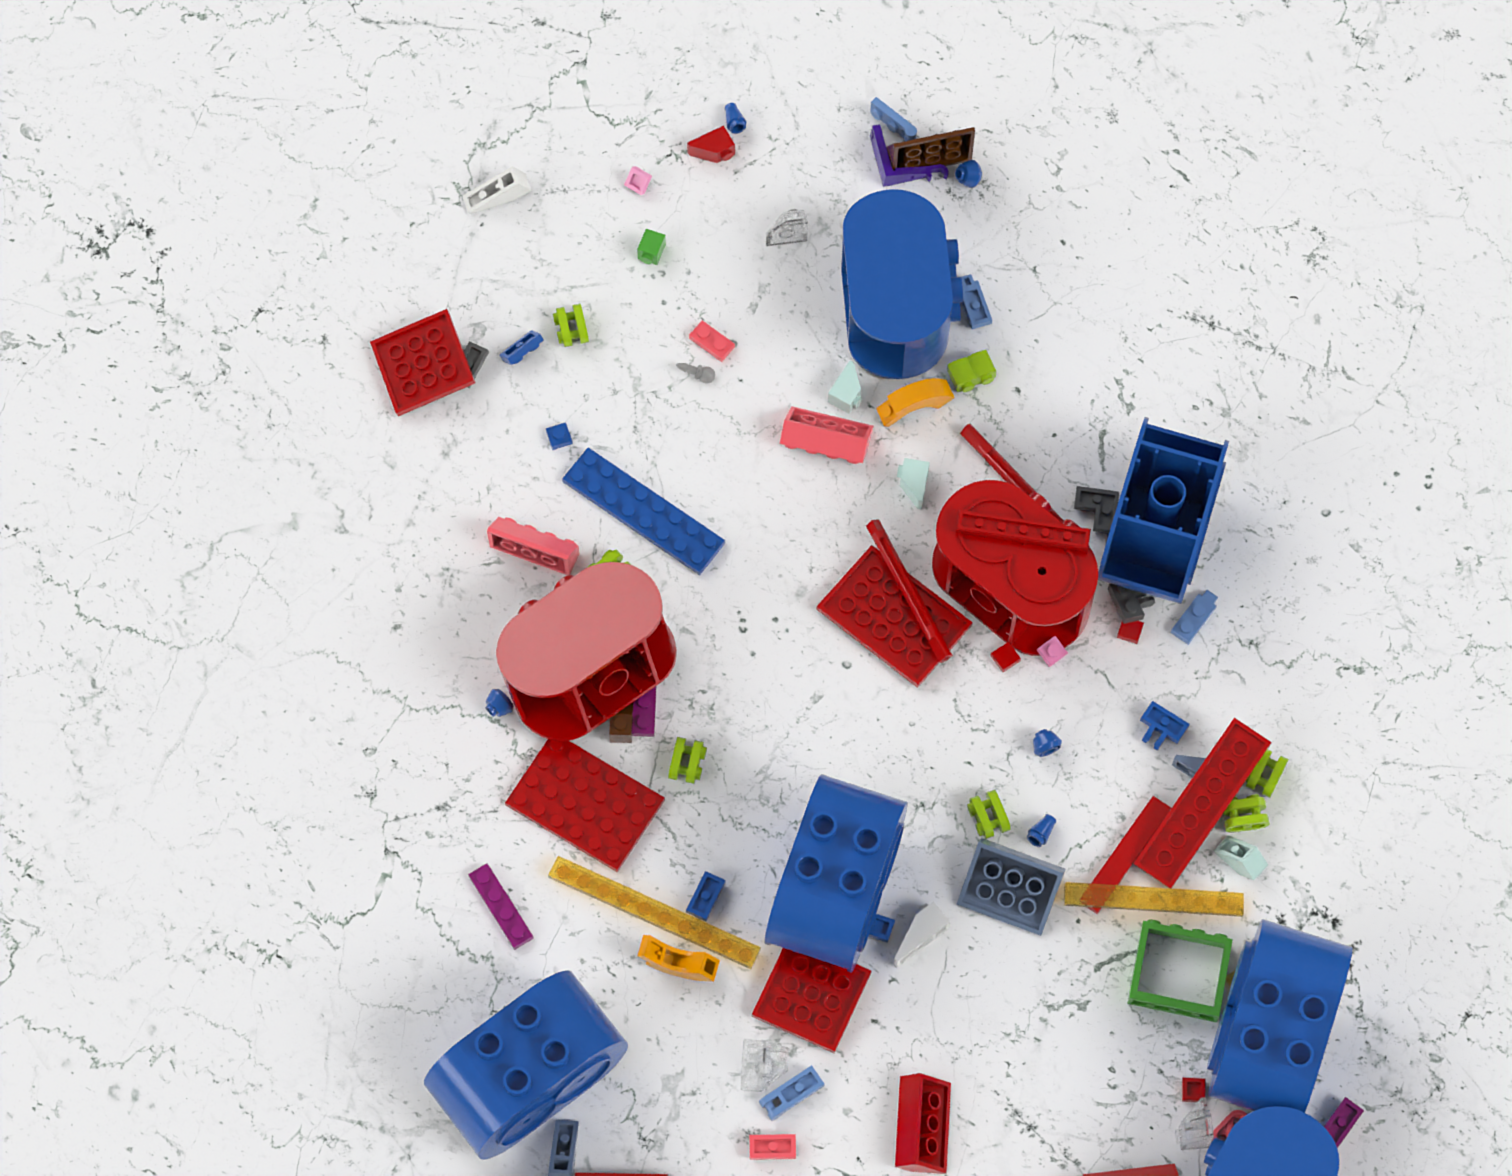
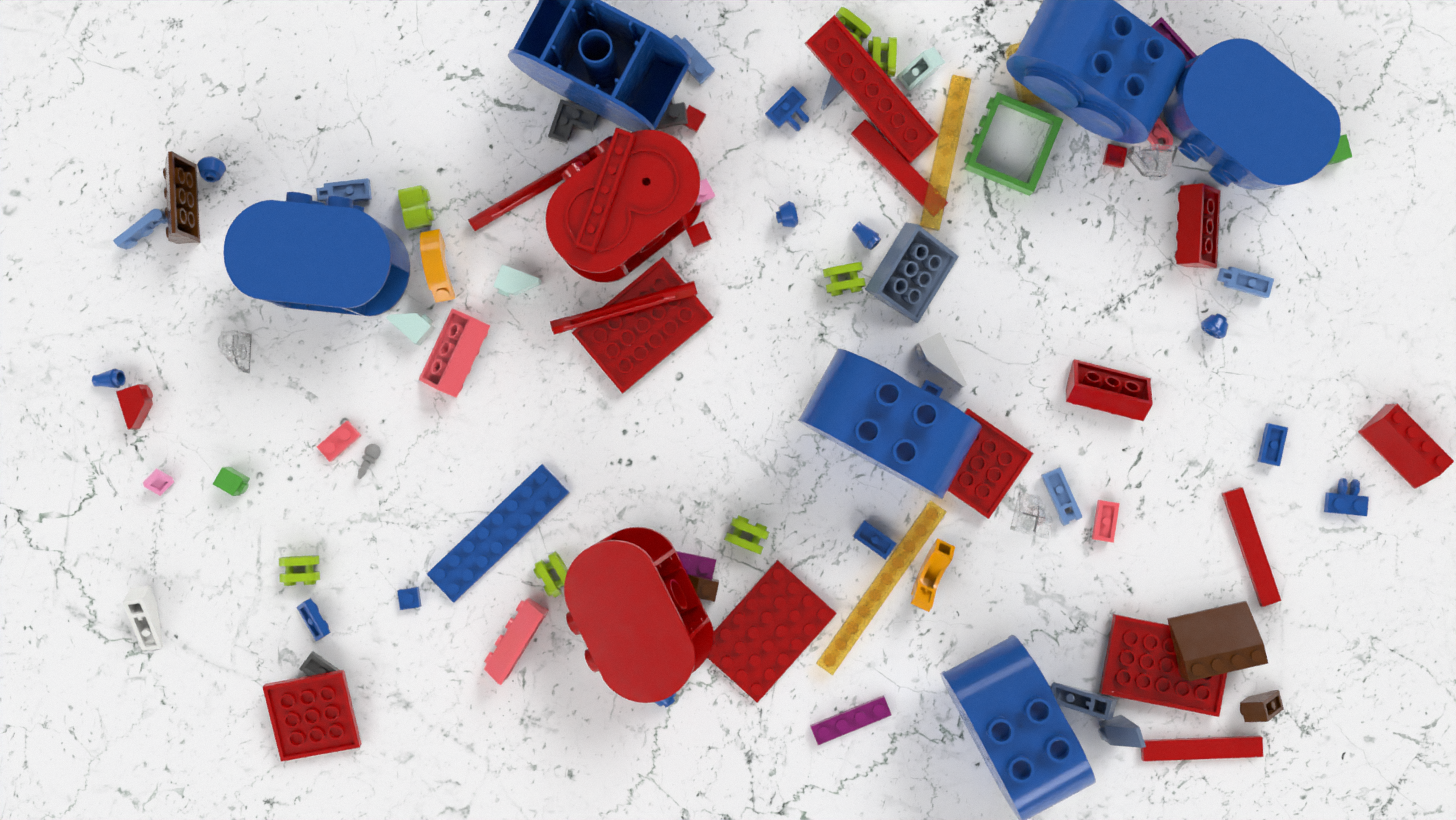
camera: 80 degrees left, 20 degrees up
(900, 175) = (200, 232): dark purple hinge -> none

